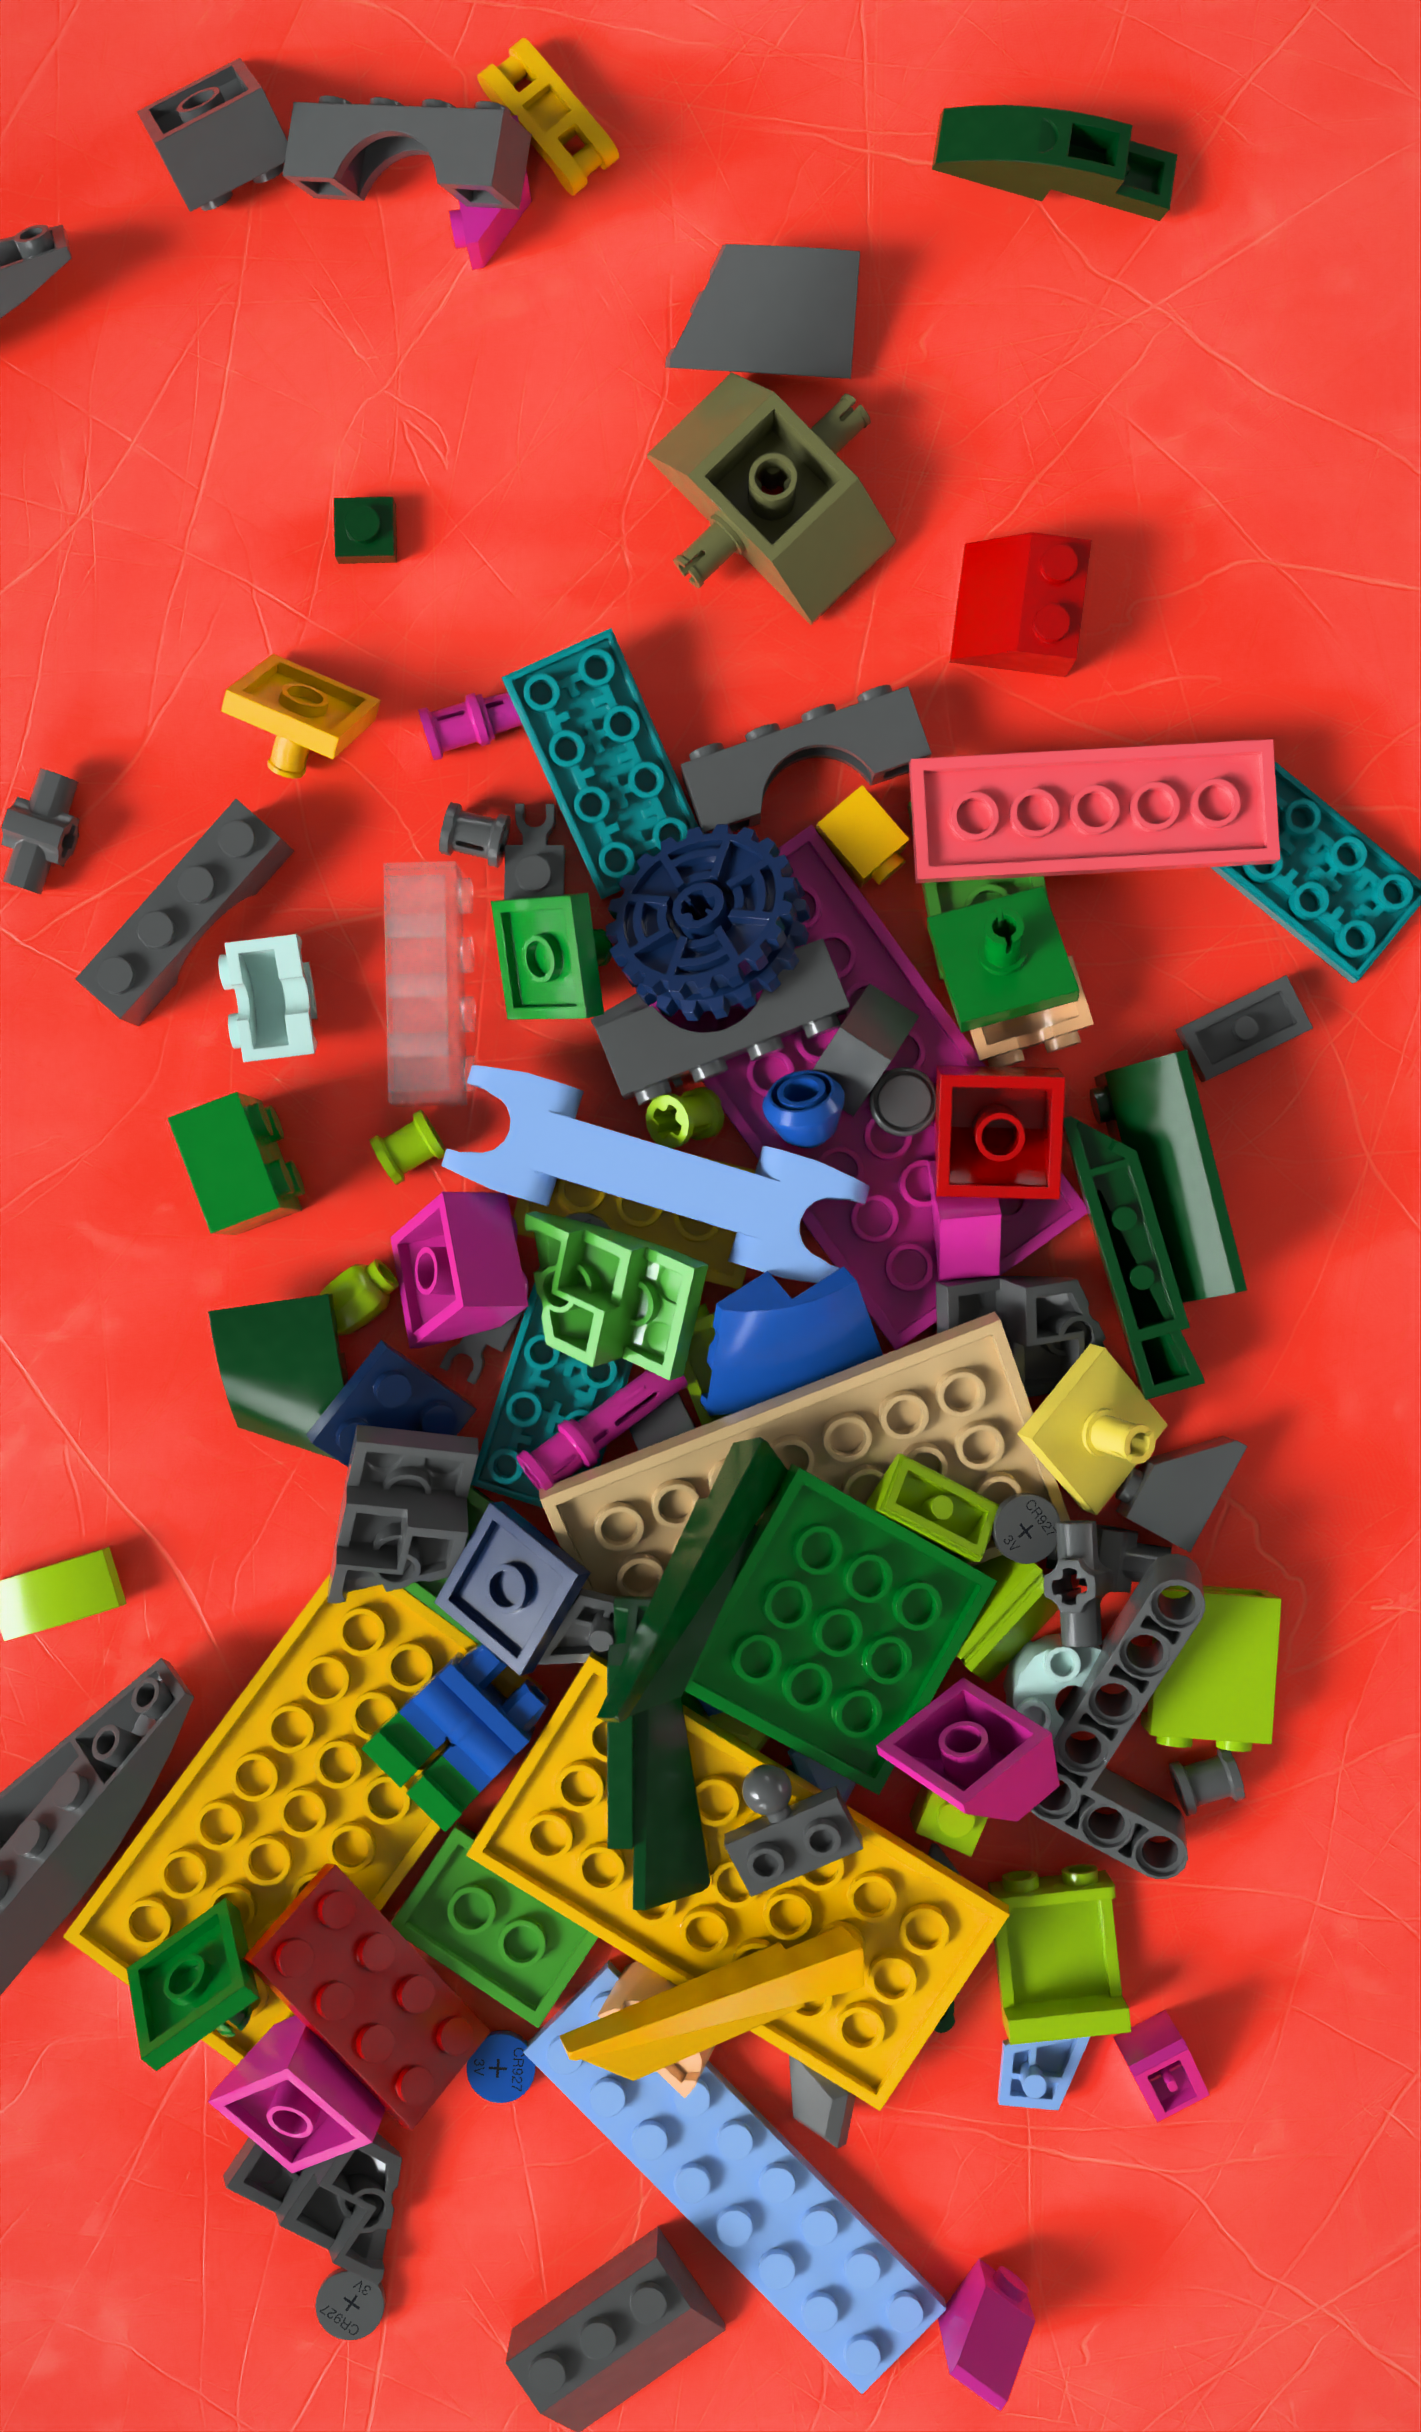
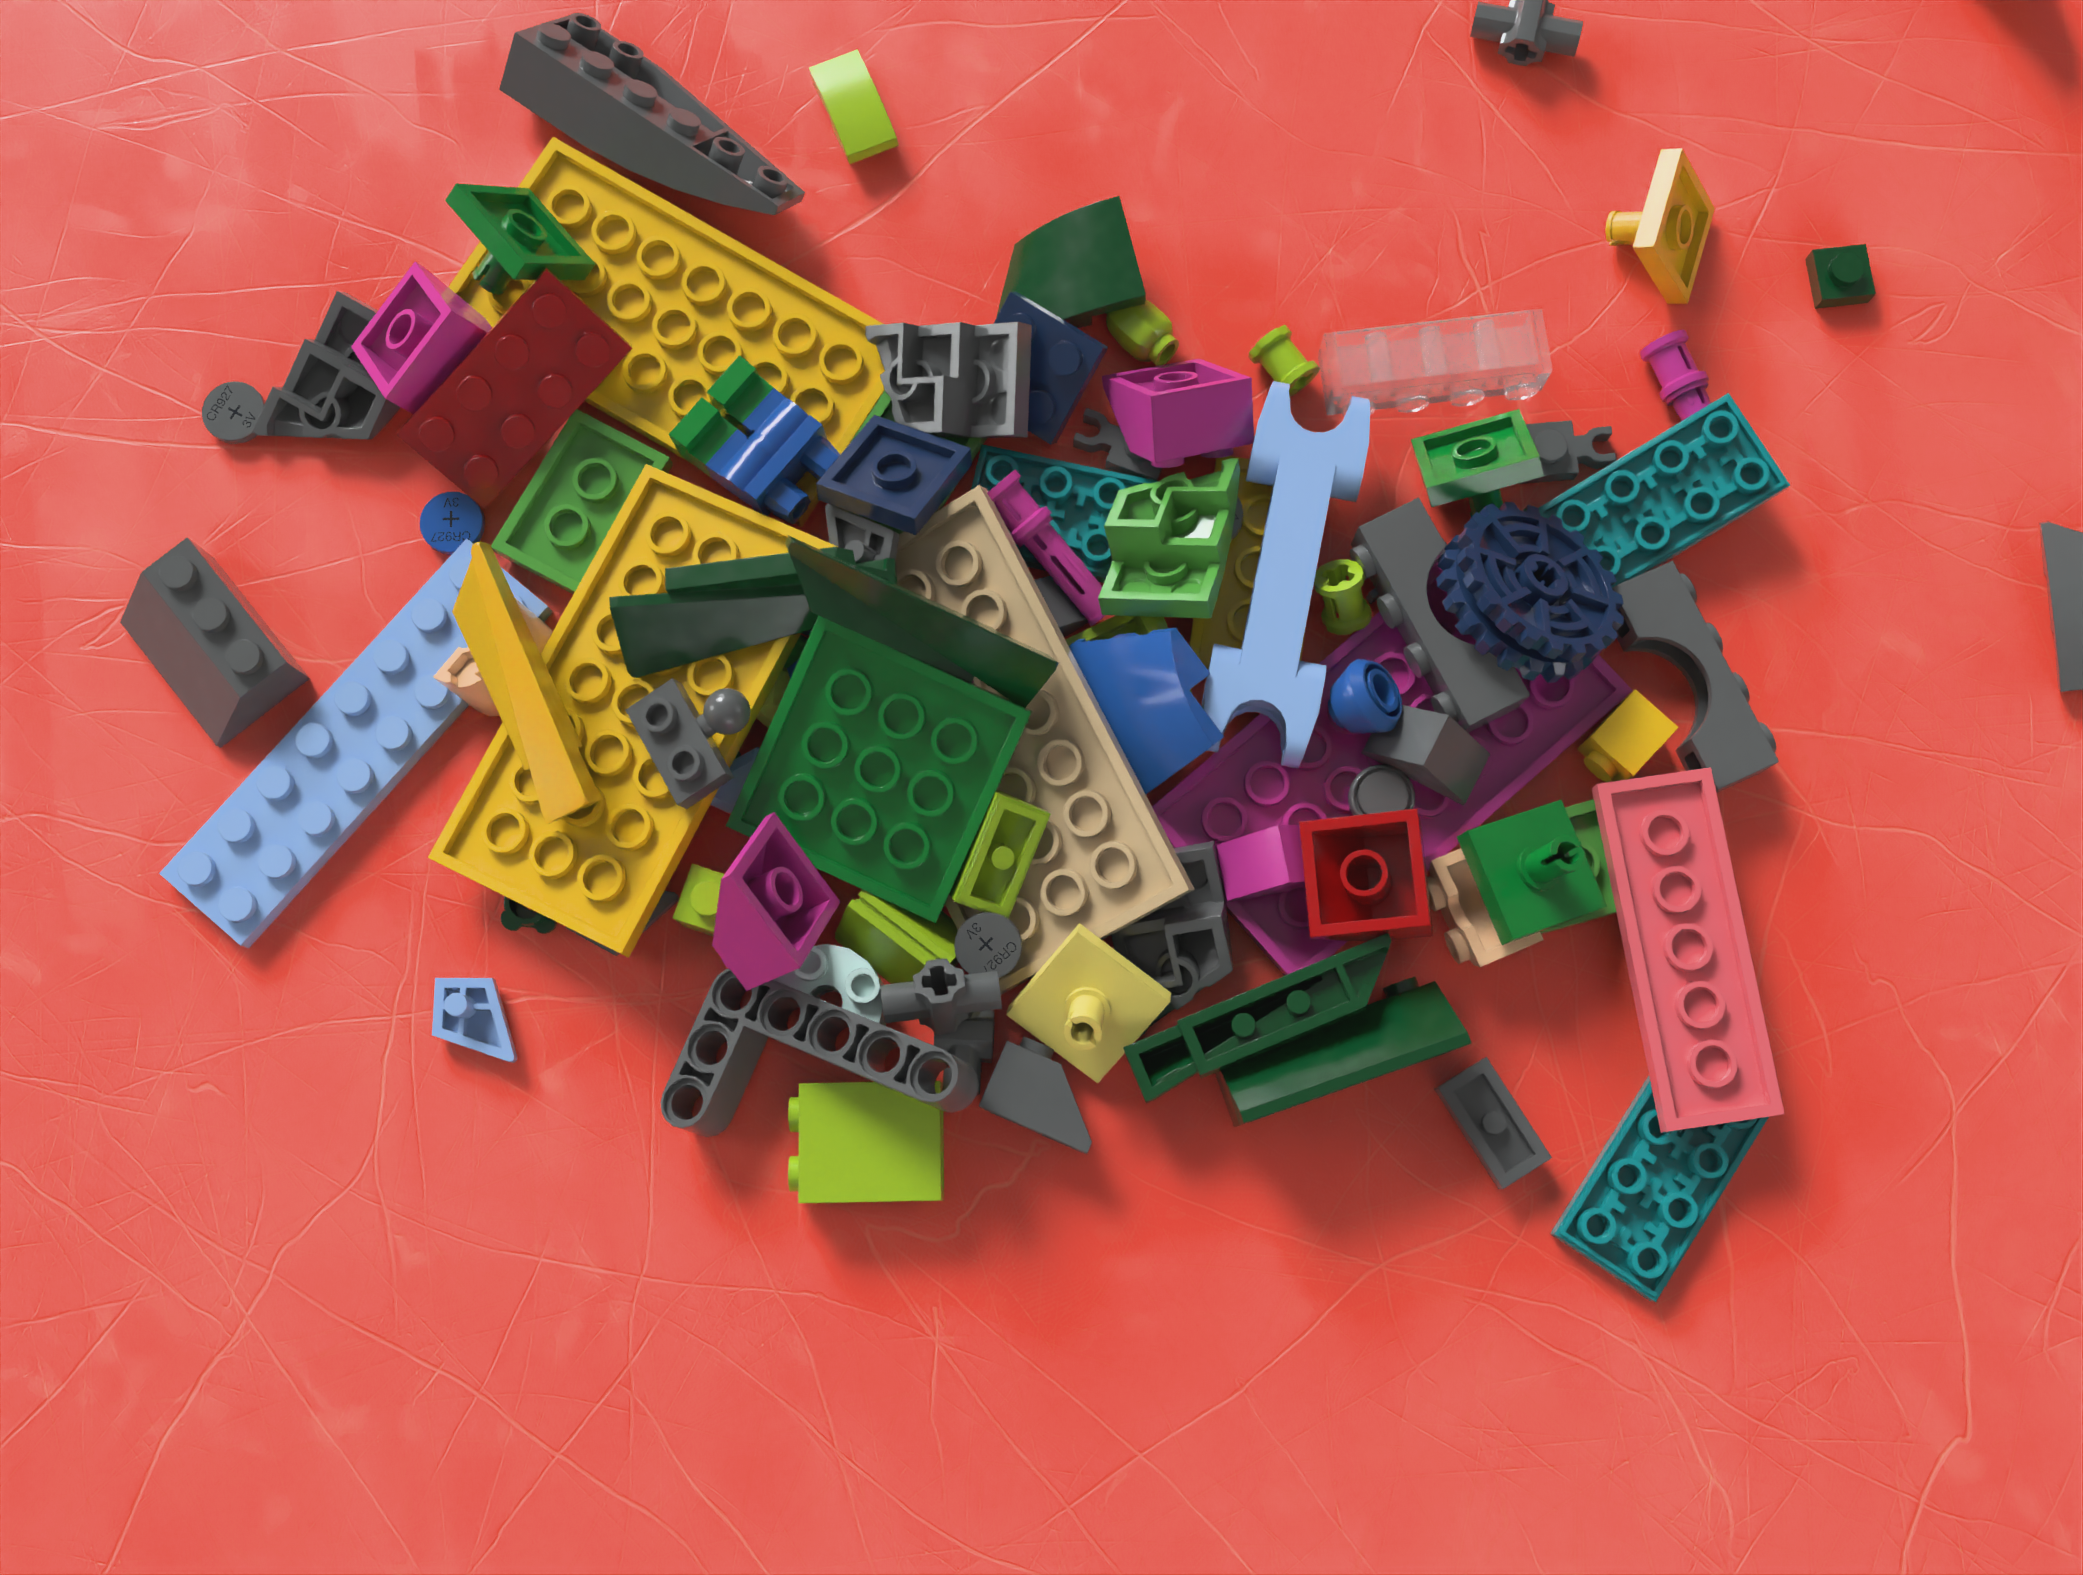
camera: 85 degrees right, 10 degrees down
(151, 946) = (1426, 118): dark grey arch -> none
(237, 1163) = (1253, 209): green brick -> none
(272, 997) = (1407, 232): light aqua cylinder -> none
(474, 834) = (1577, 391): dark grey bush -> none
(803, 541) = (1937, 631): olive slope -> none
(820, 2103) = (429, 809): piece -> none
(987, 2331) = (221, 978): dark pink slope -> none
(1021, 603) = (1874, 871): red slope -> none
(1059, 1956) = (580, 1022): lime panel -> none
(1162, 2065) = (475, 1132): dark pink slope -> none
(1207, 1781) = (755, 1150): dark grey bush -> none

